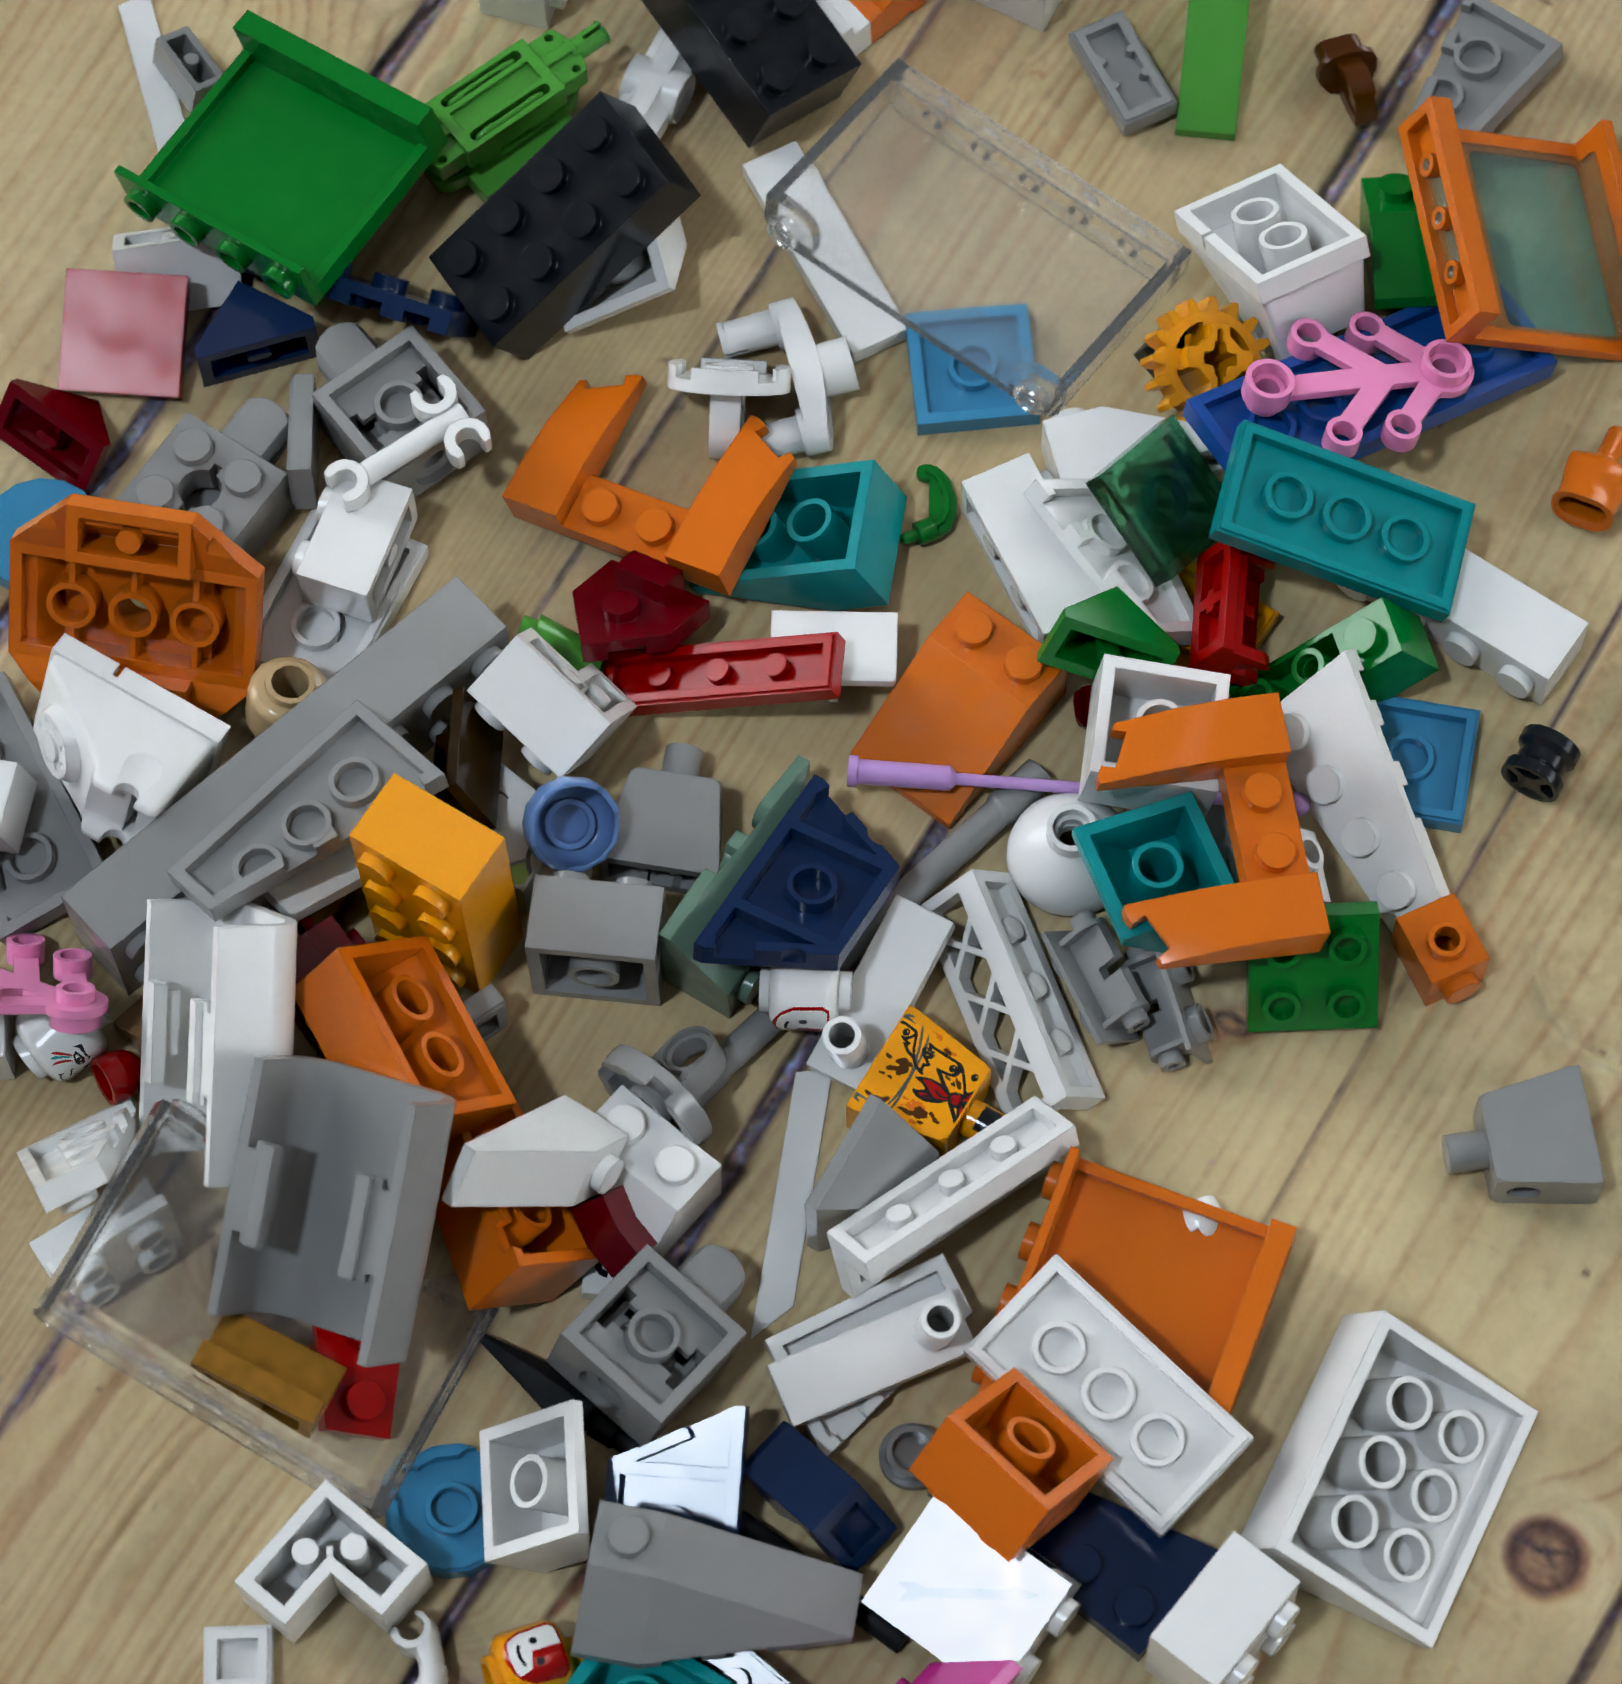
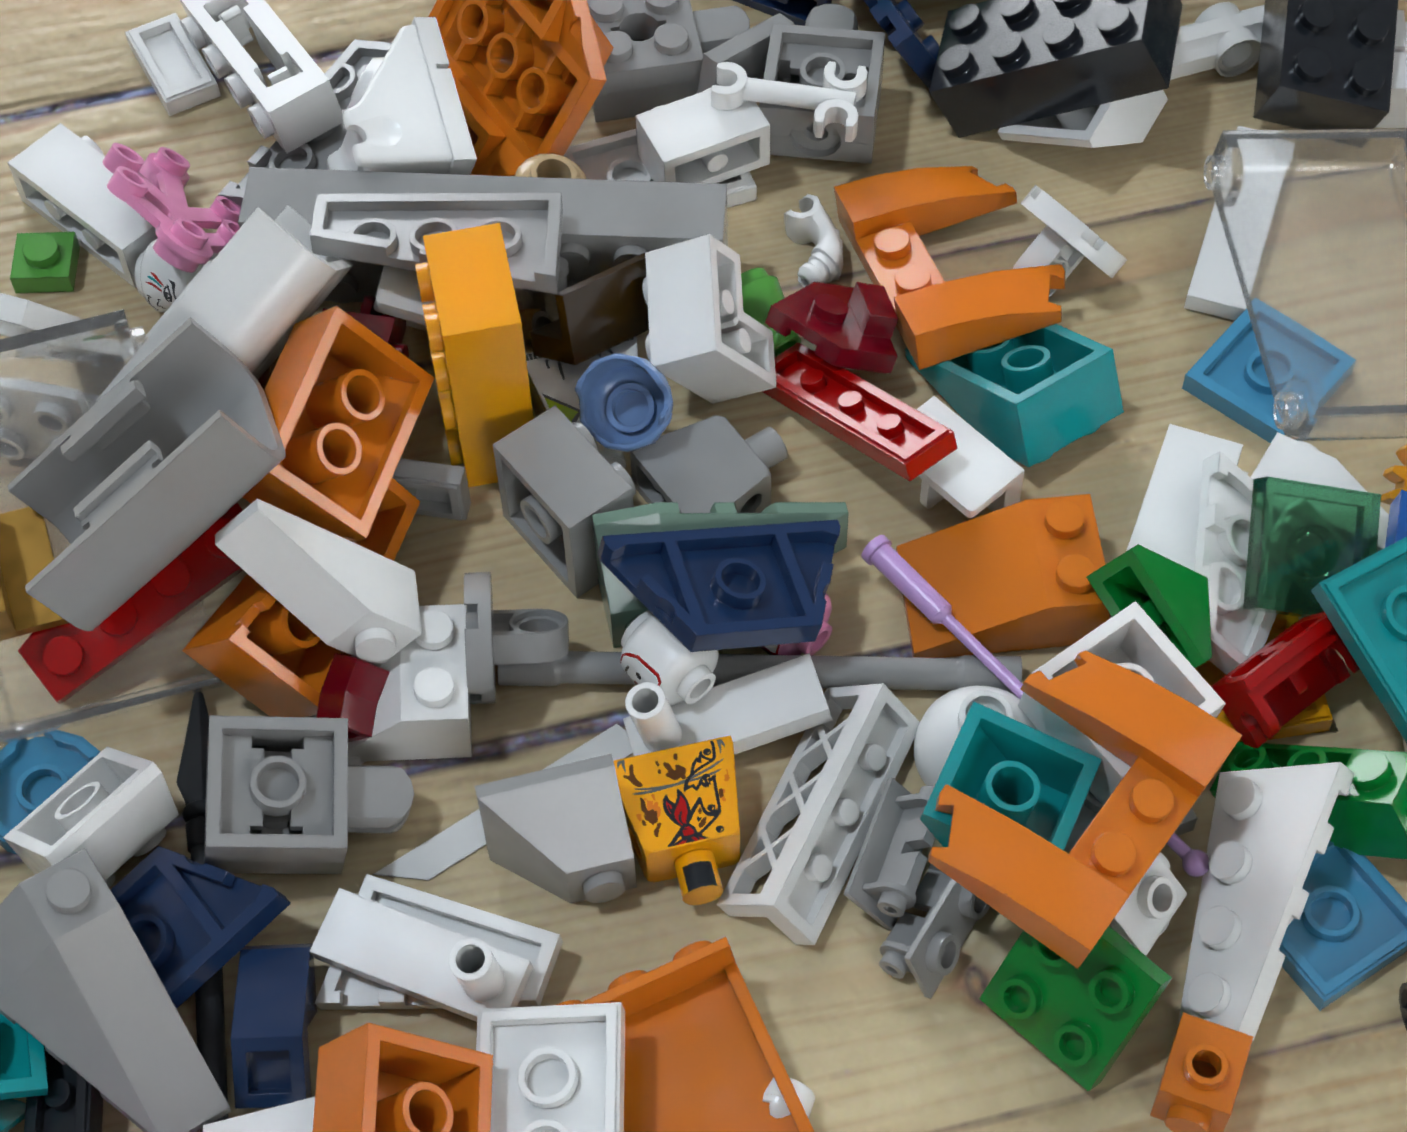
camera: 45 degrees right, 10 degrees down
(549, 558) = (815, 226): none -> white piece
(816, 370) = (1141, 284): white connector -> none
(941, 508) = (1140, 448): green piece -> none
(948, 1194) = (600, 891): white fence -> none

